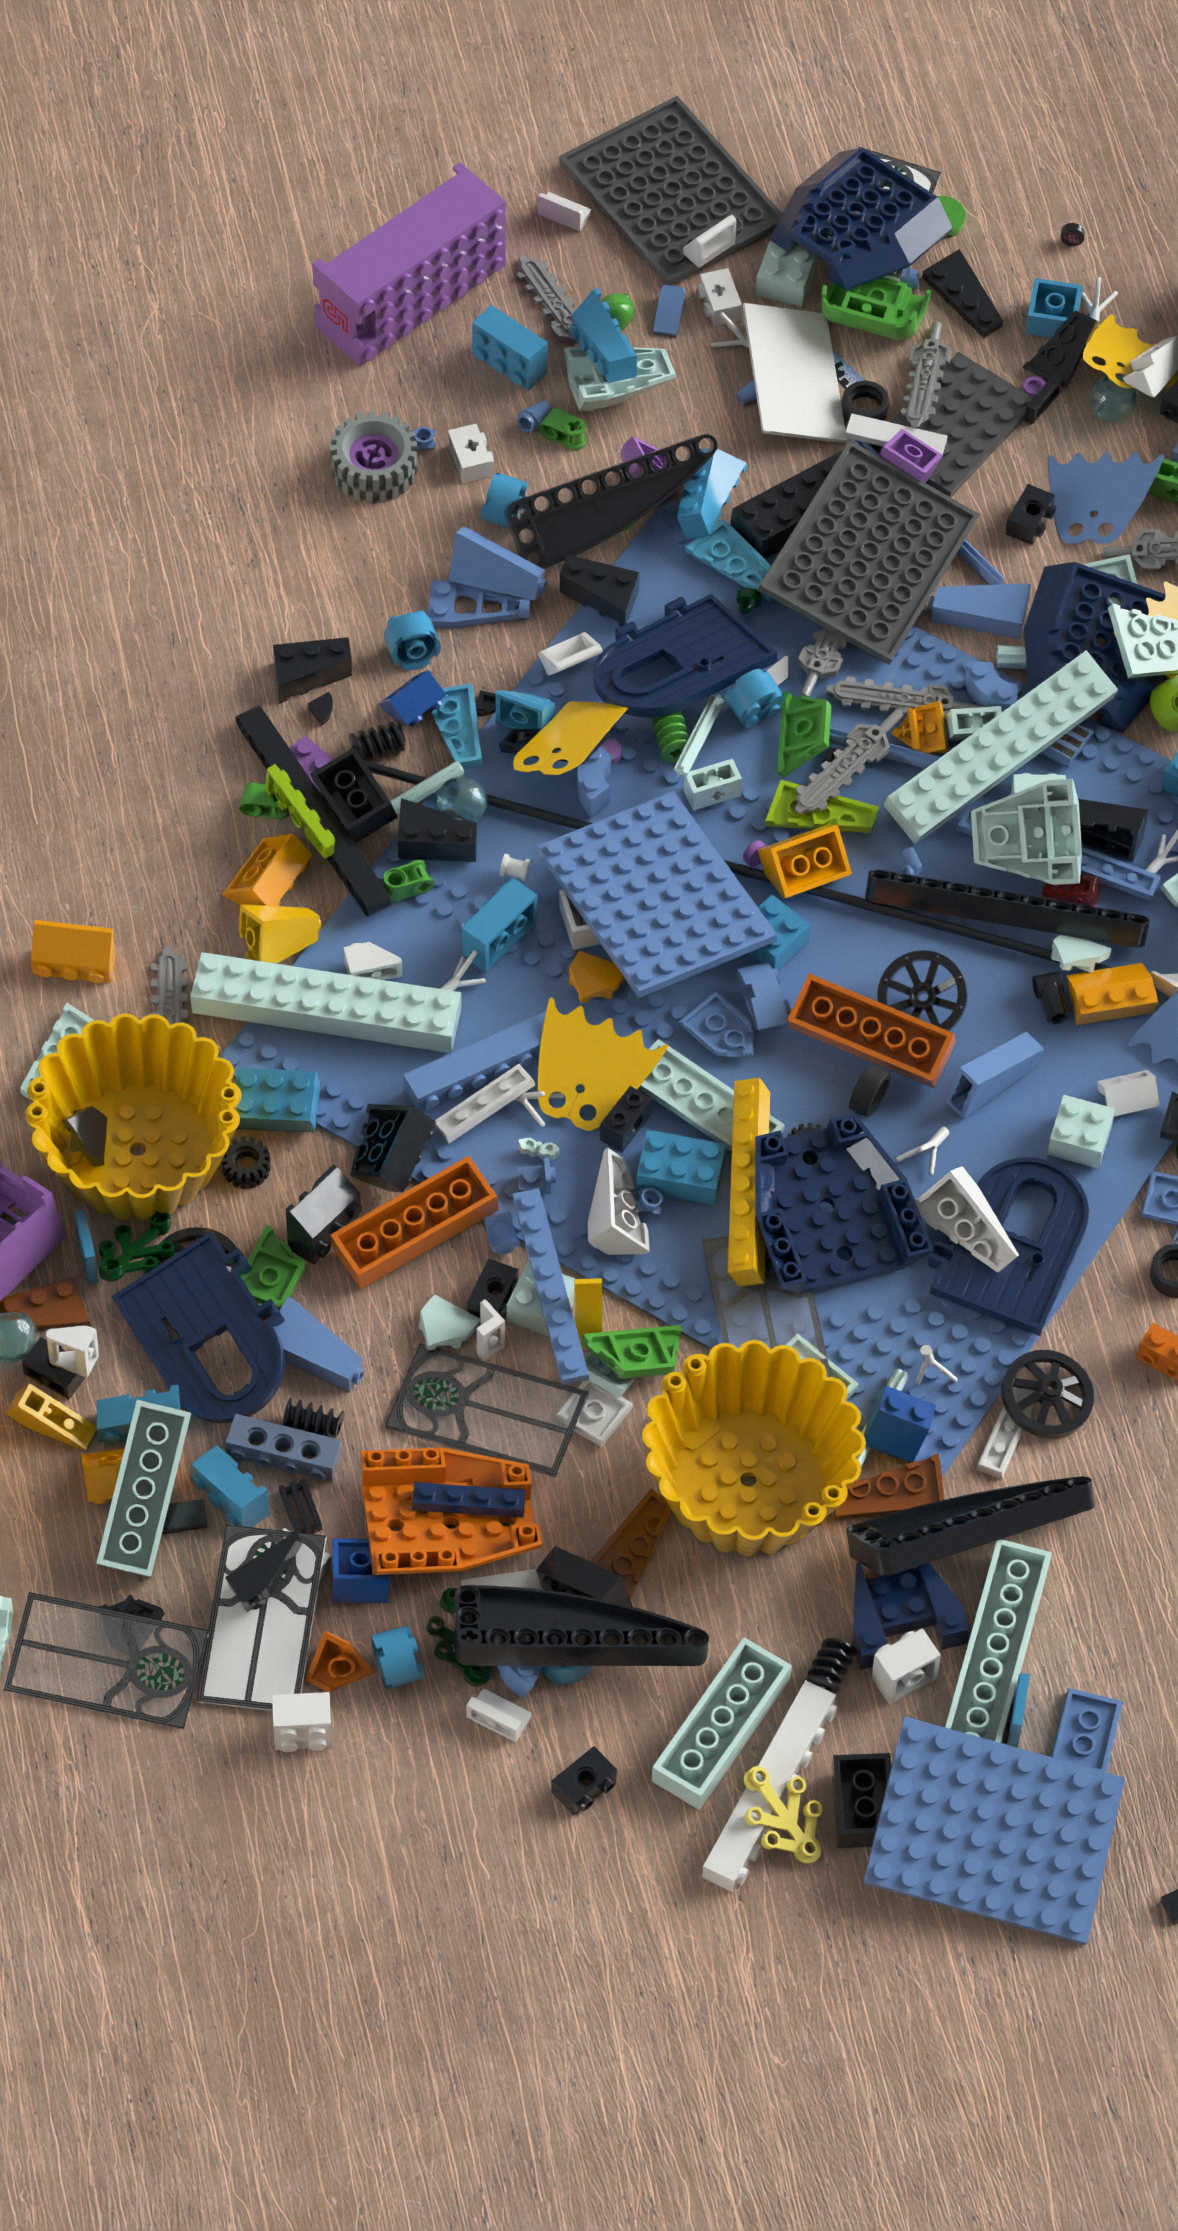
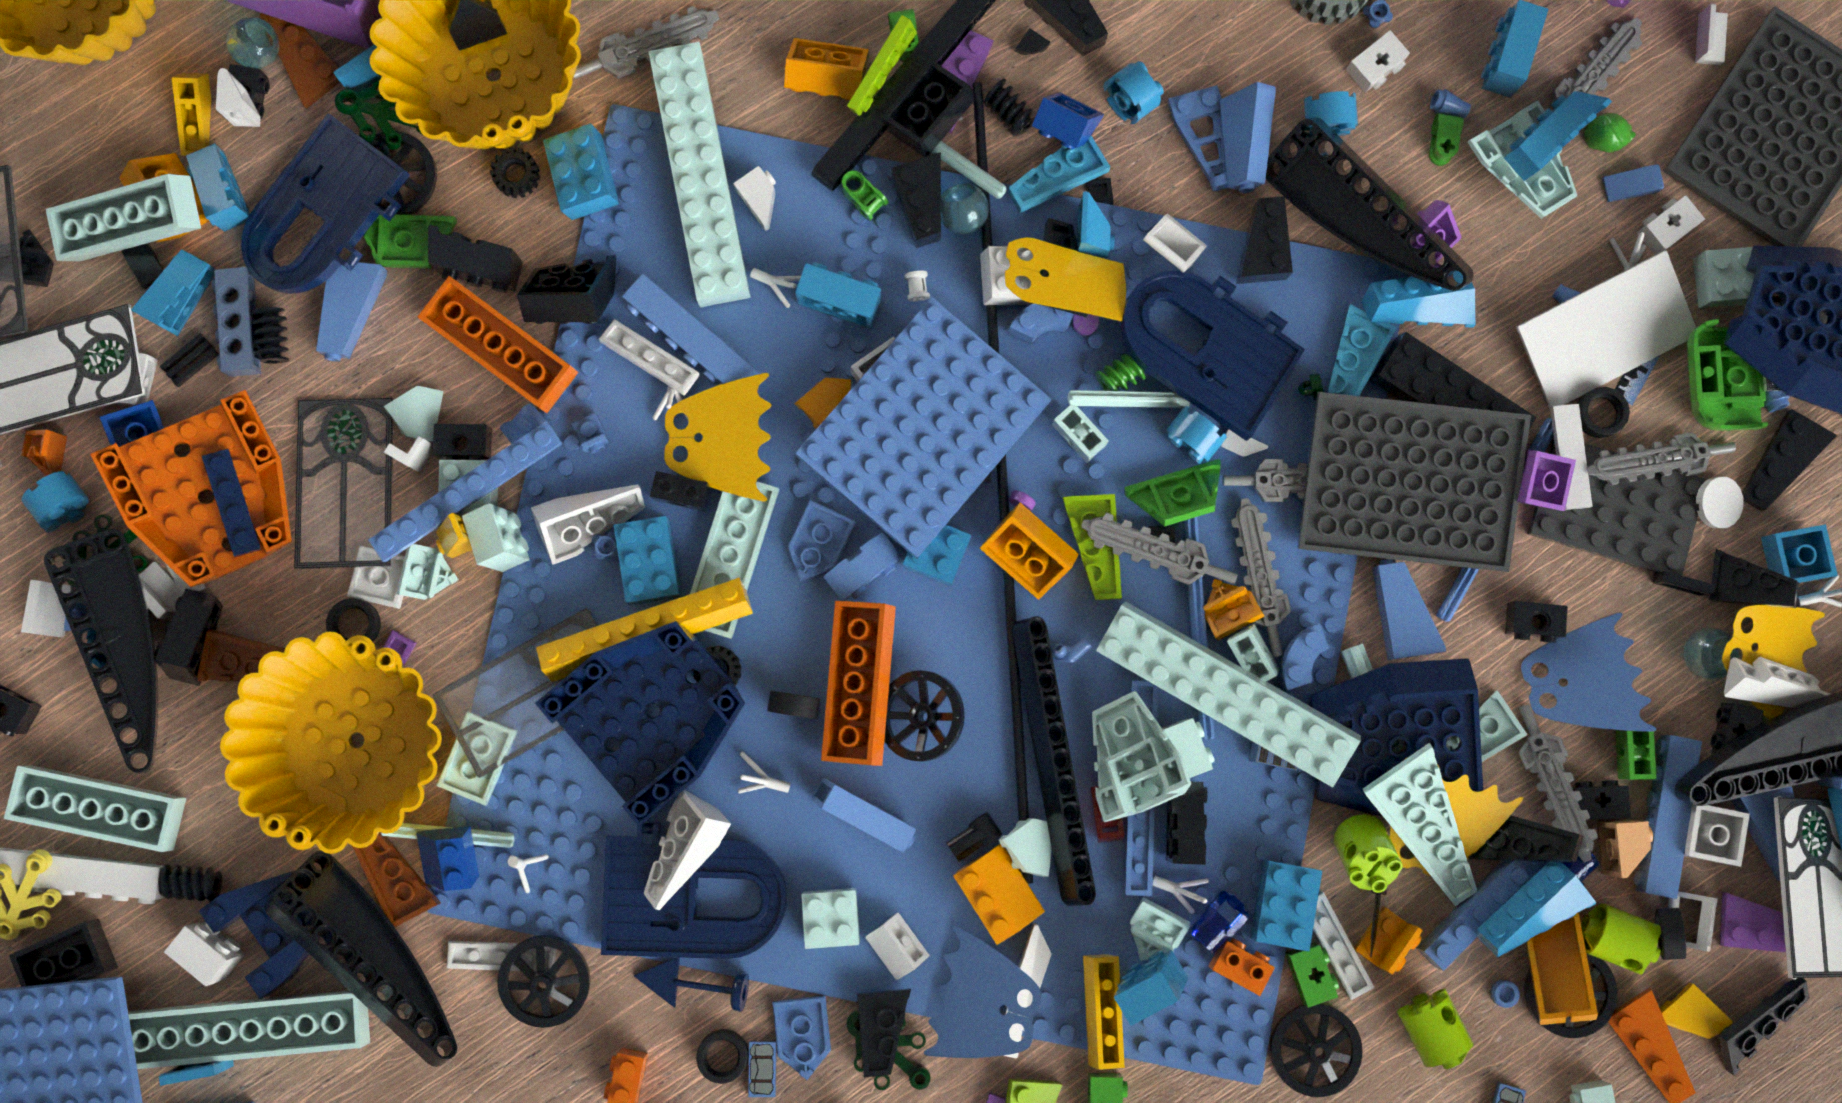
camera: 65 degrees right, 25 degrees up
(260, 1576) = (74, 350): black slope -> none
(277, 931) = (763, 102): yellow slope -> none
(533, 1148) = (624, 419): light aqua piece -> none
(541, 793) = (993, 269): none -> white brick
(616, 1276) = (496, 537): none -> light aqua brick
(620, 1461) = (338, 609): none -> black tyre
(636, 1351) = (442, 594): bright green wing -> none
(712, 242) = (1729, 191): white tile -> none
(982, 348) = (1719, 502): none -> white tile
(1033, 385) = (1697, 568): medium lavender tile -> none
(1084, 1297) = (664, 982): none -> dark blue piece

